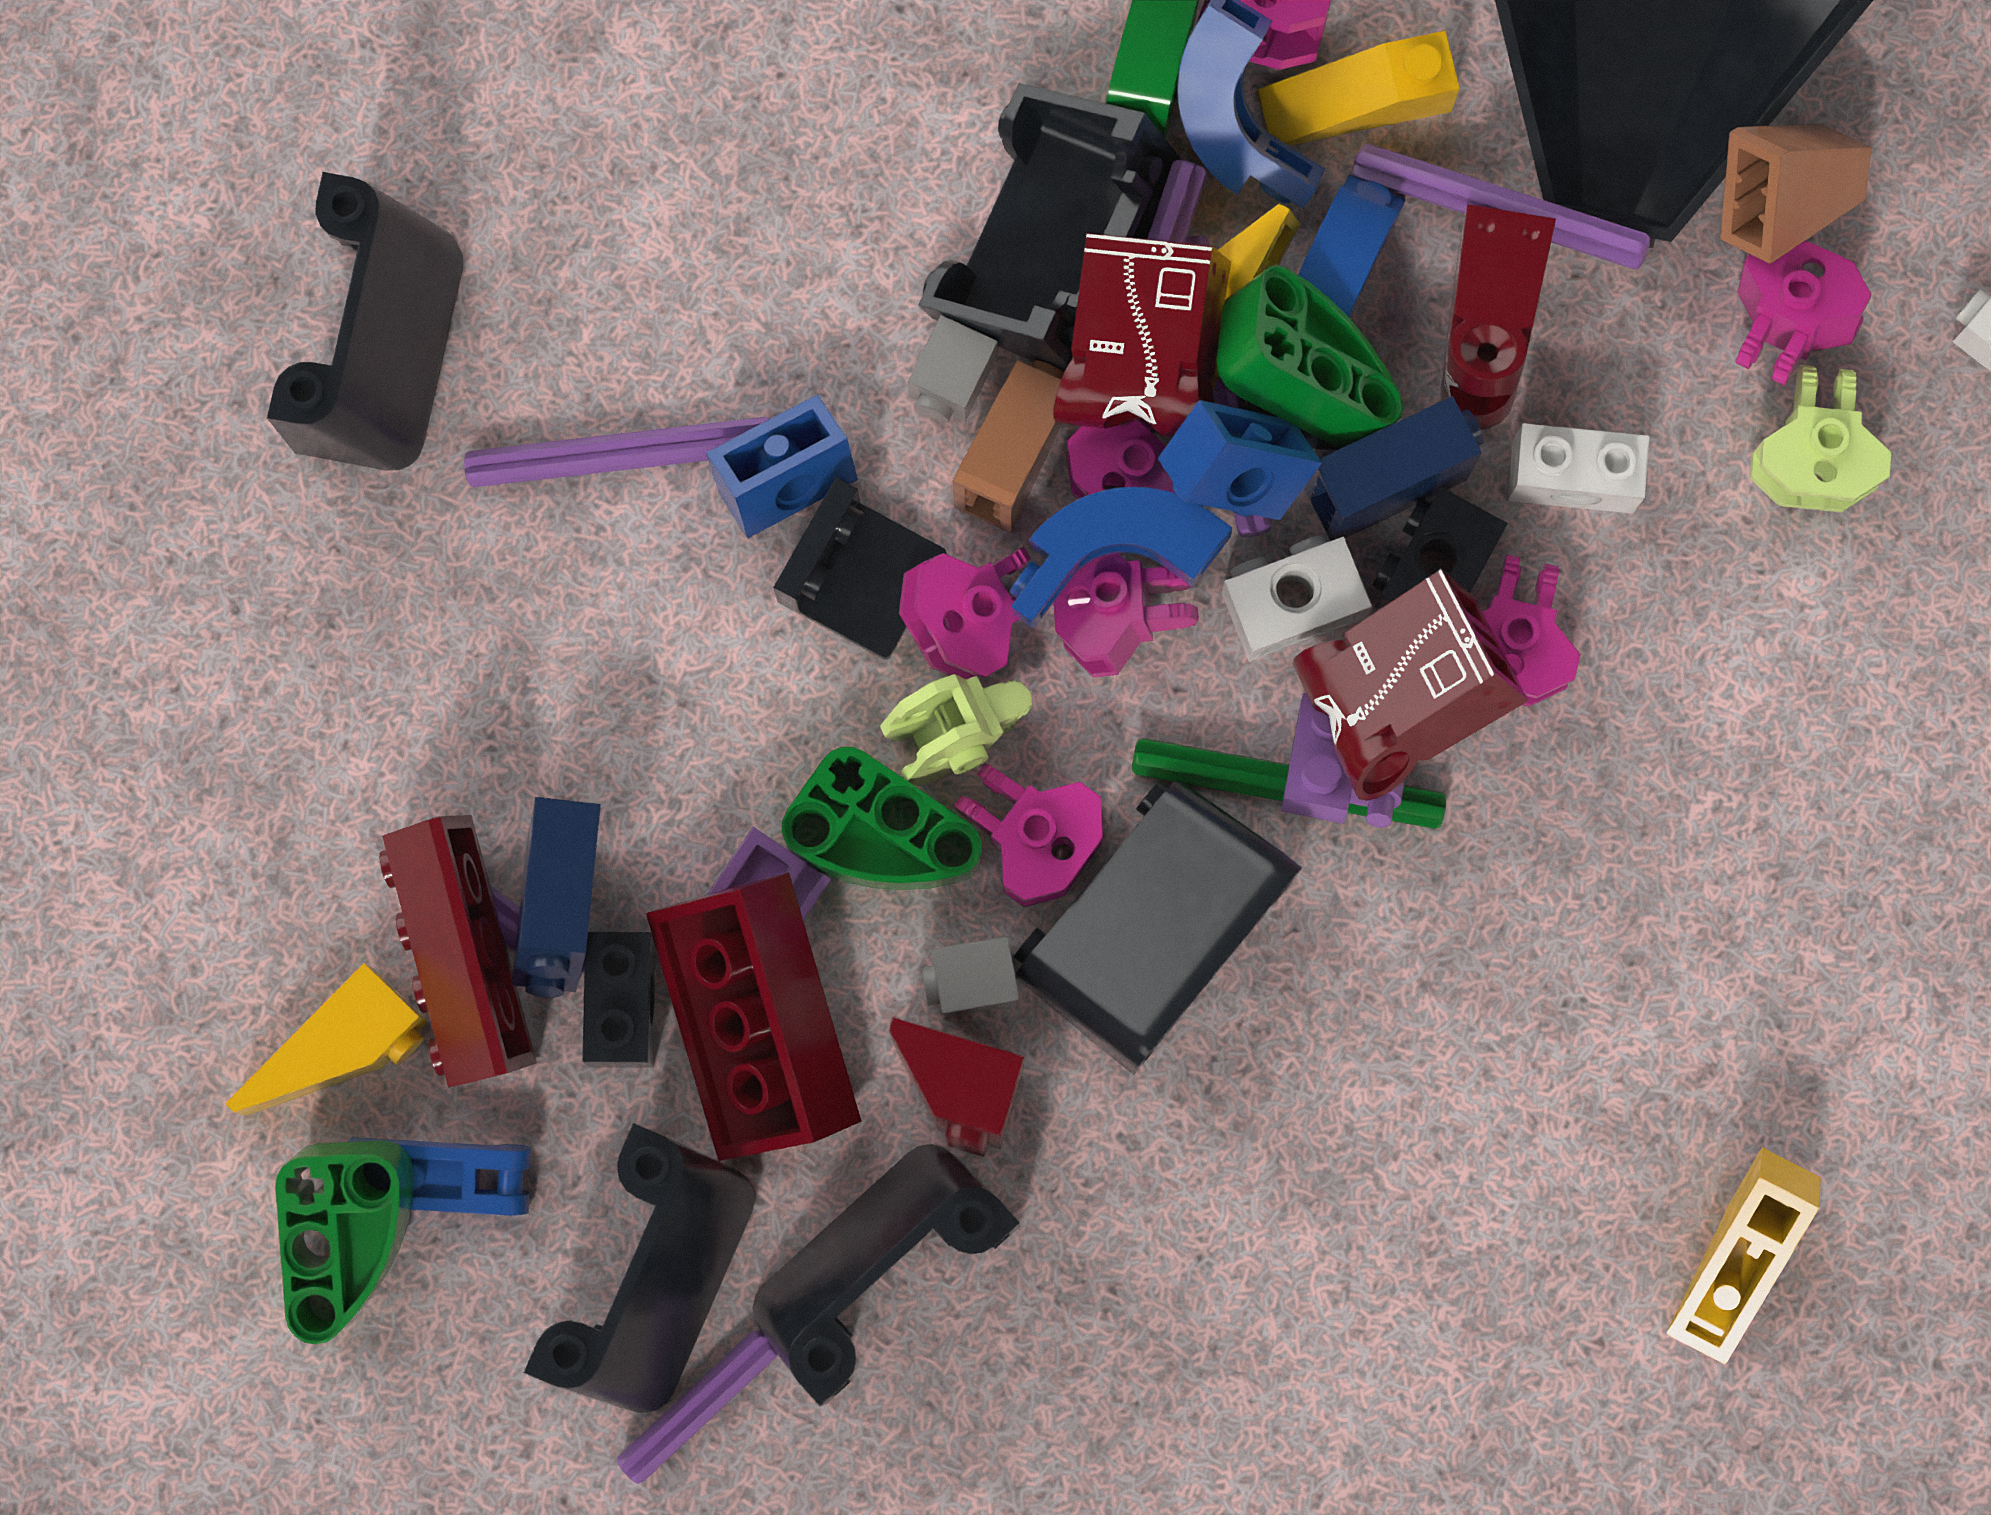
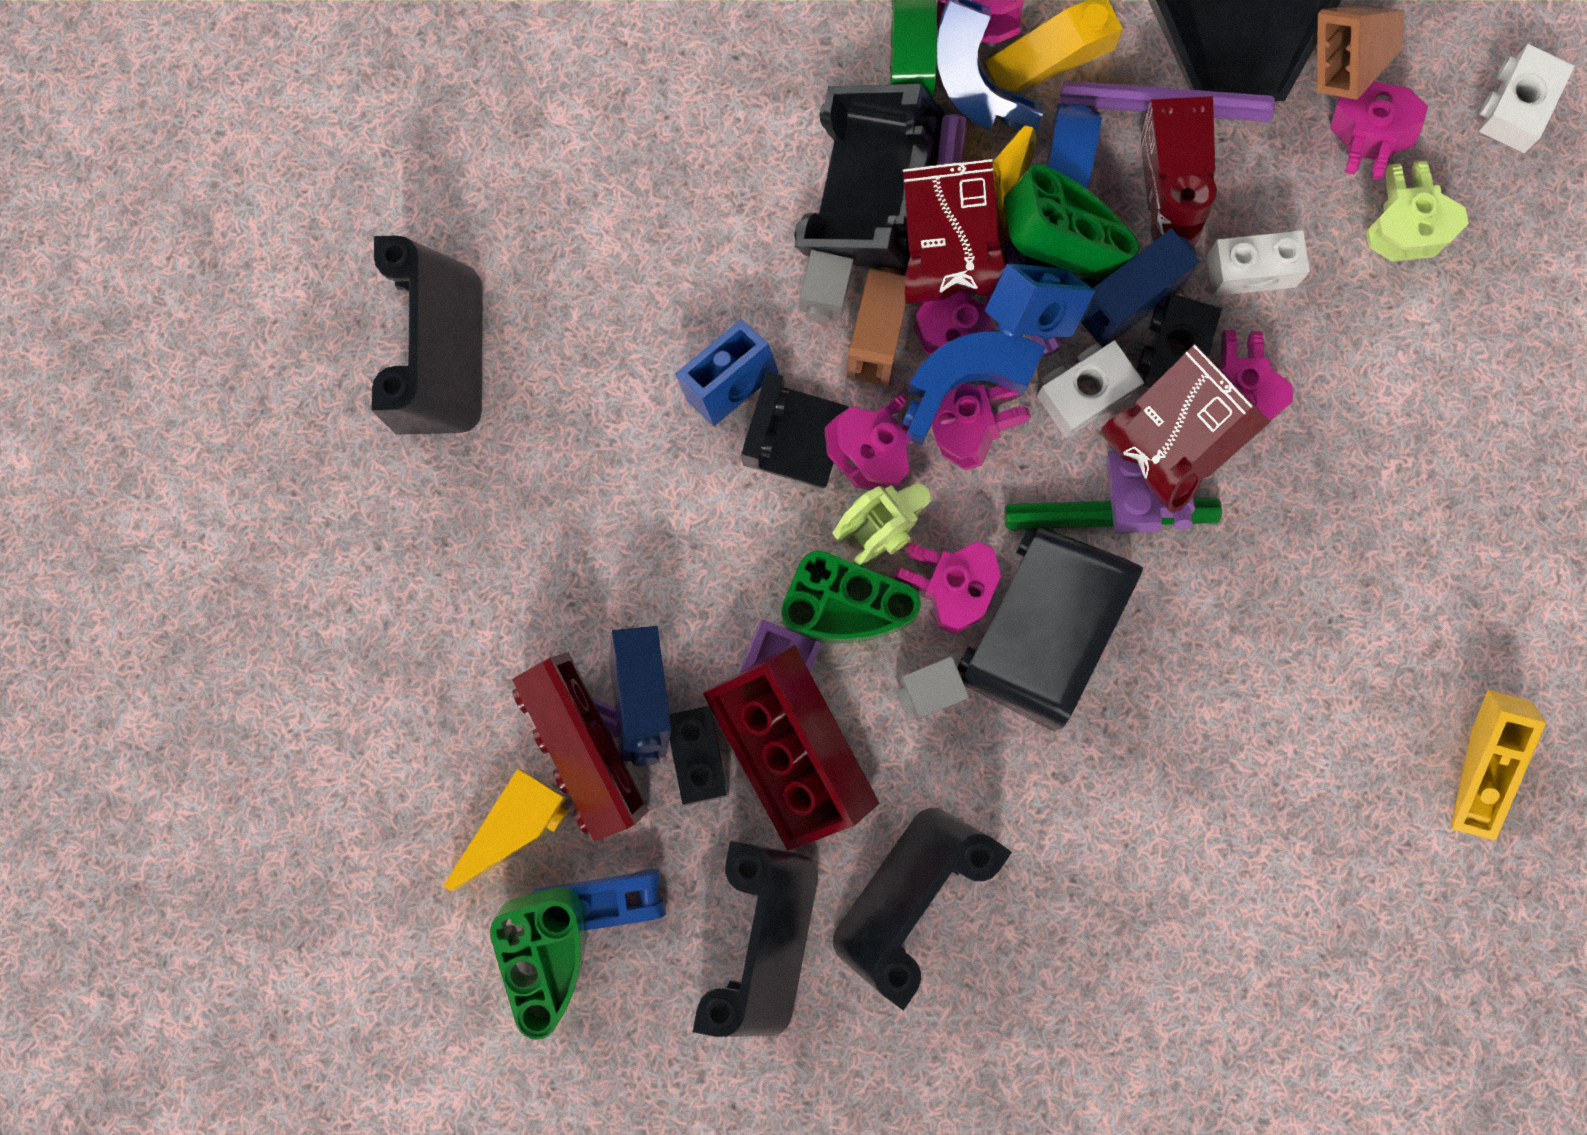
camera: 10 degrees left, 0 degrees up
(600, 453) = (601, 391): medium lavender axle -> none
(696, 1407) = (810, 1023): medium lavender axle -> none
(962, 1084) = (949, 765): dark red slope -> none

